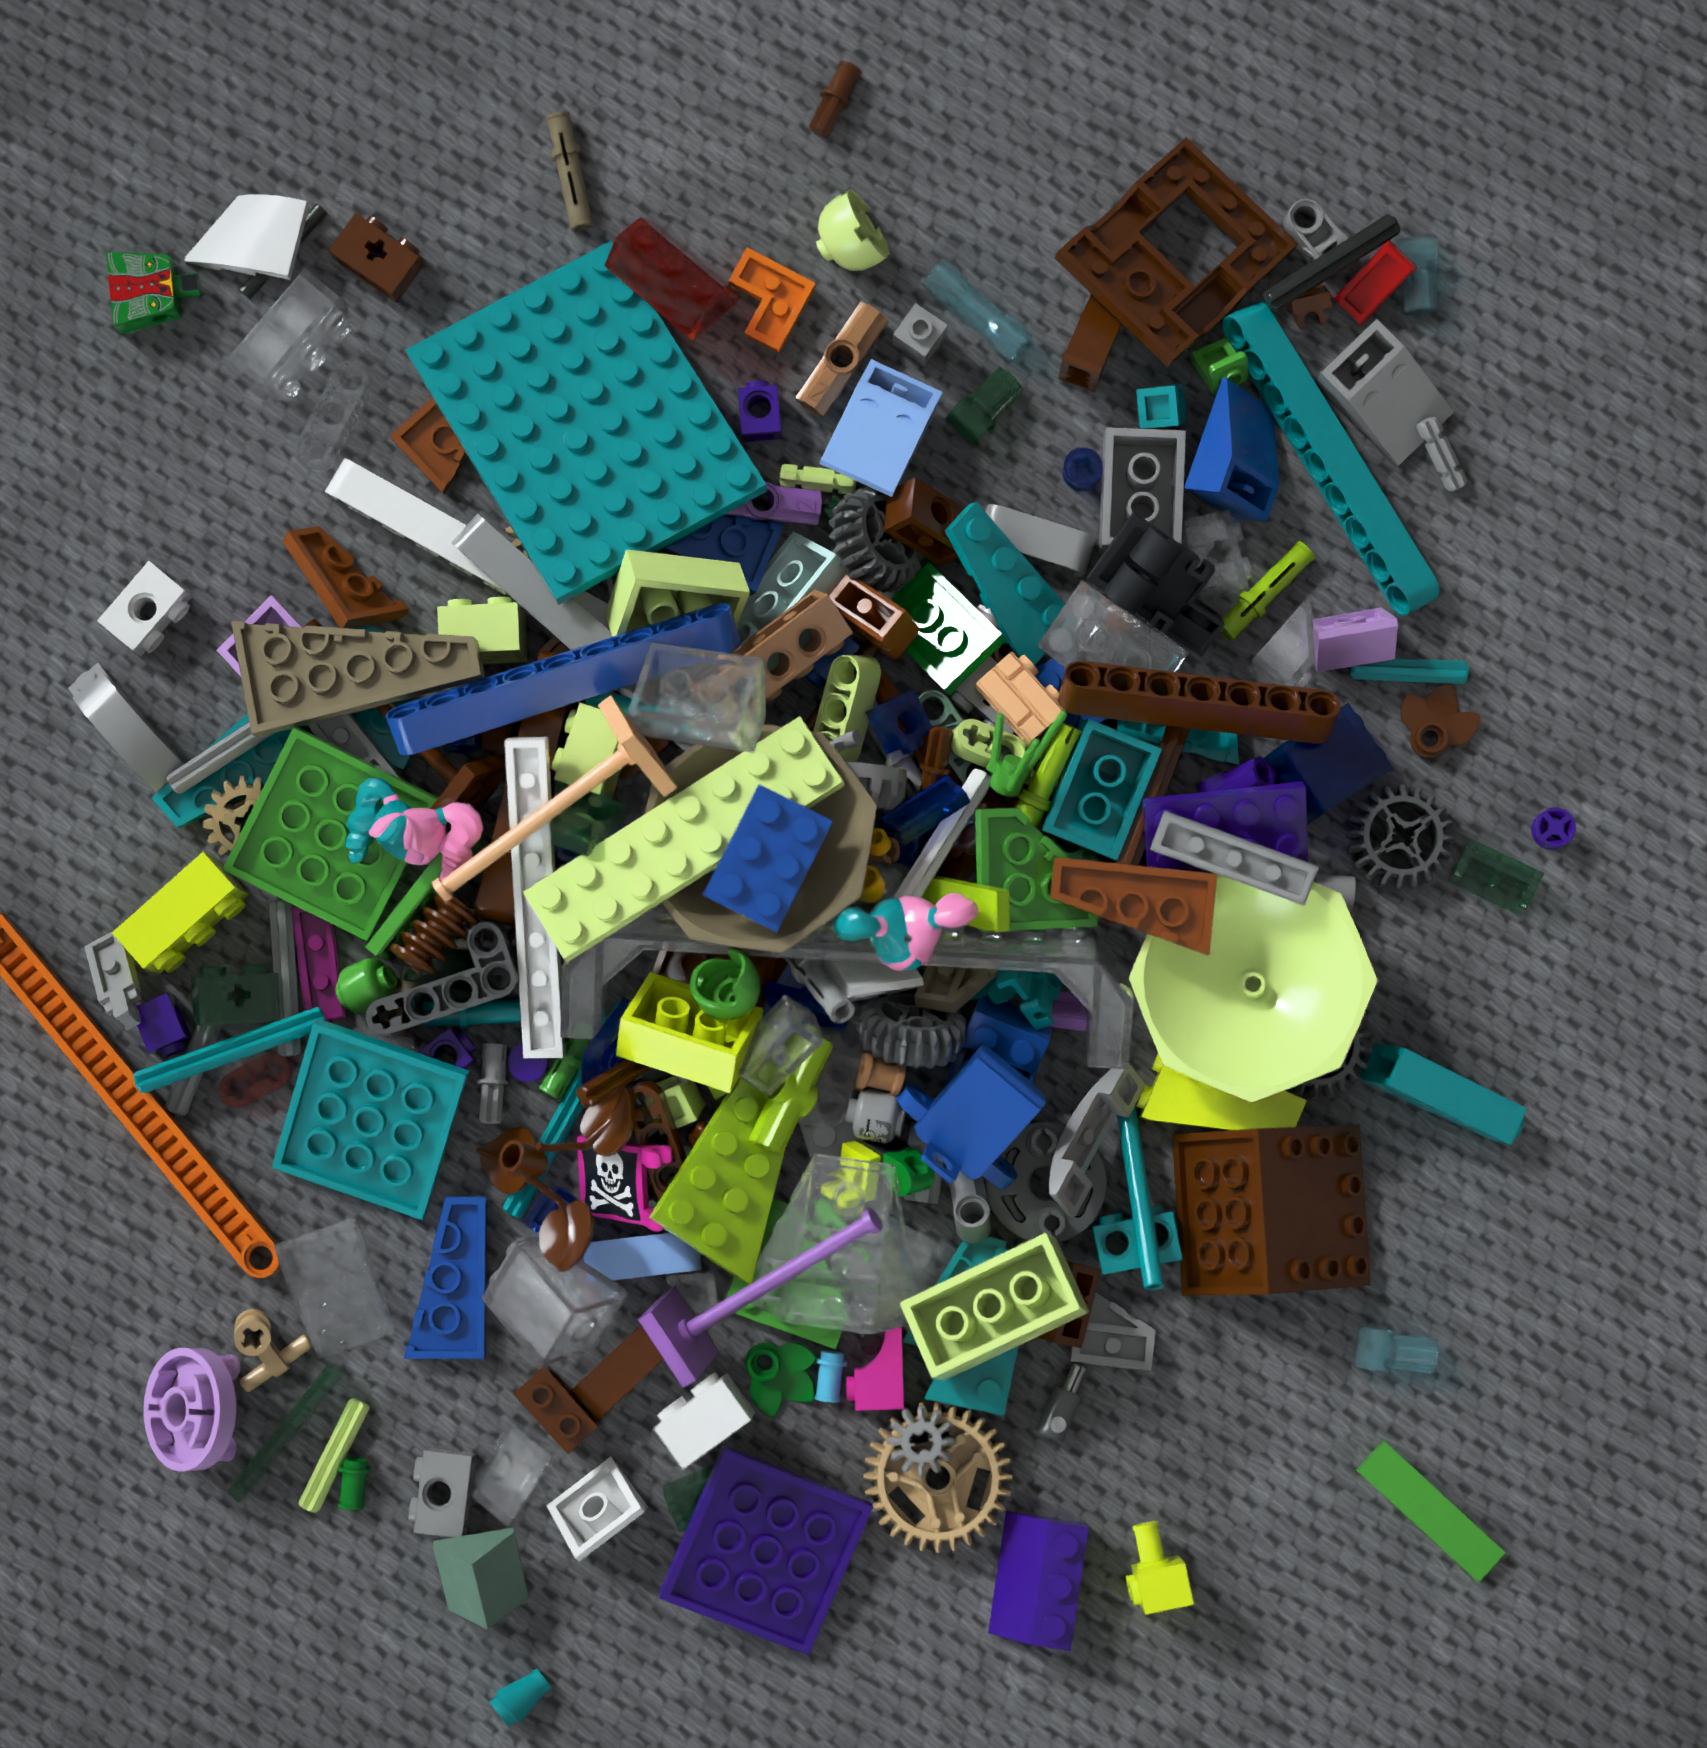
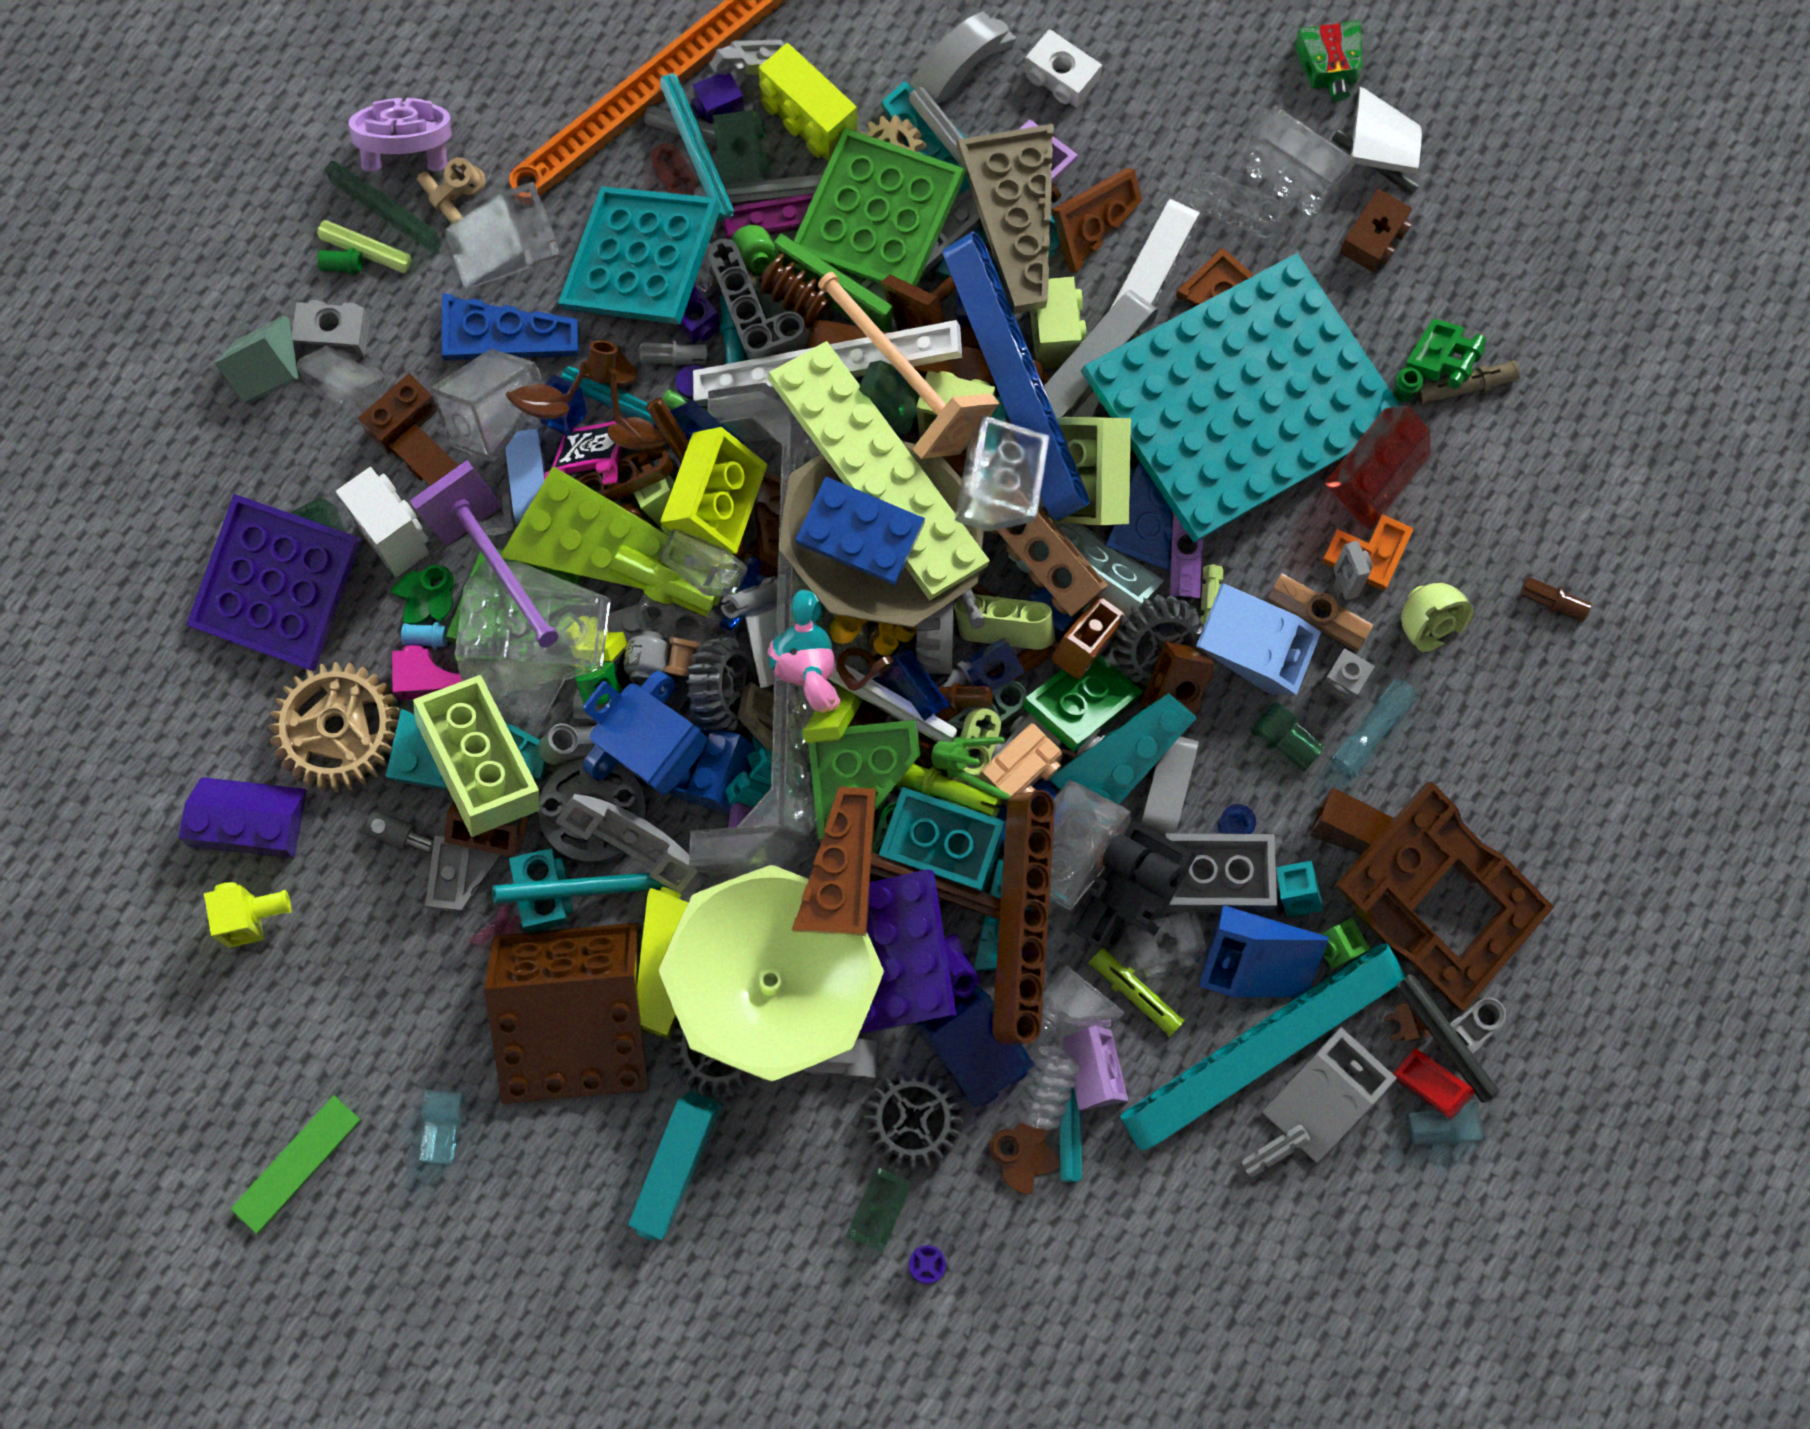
camera: 80 degrees right, 10 degrees down
(411, 832) = (879, 261): hair -> none
(519, 1697) = (158, 394): teal cone -> none
(528, 201) = (1435, 352): none -> green plate
(568, 230) = (1407, 383): none -> green pin
(596, 1508) = (313, 449): white slope -> none
(723, 983) = (751, 515): bright green helmet -> none
(763, 428) = (1256, 555): dark purple brick -> none
(808, 317) = (1351, 571): none -> light grey hinge
(920, 884) = (877, 669): none -> reddish brown piece
(924, 1454) = (361, 688): light grey gear -> none
(1172, 1285) = (499, 925): none -> clear pink hand
(1234, 857) = (880, 949): light grey tile -> none
(1375, 689) = (1051, 1089): none -> clear piece

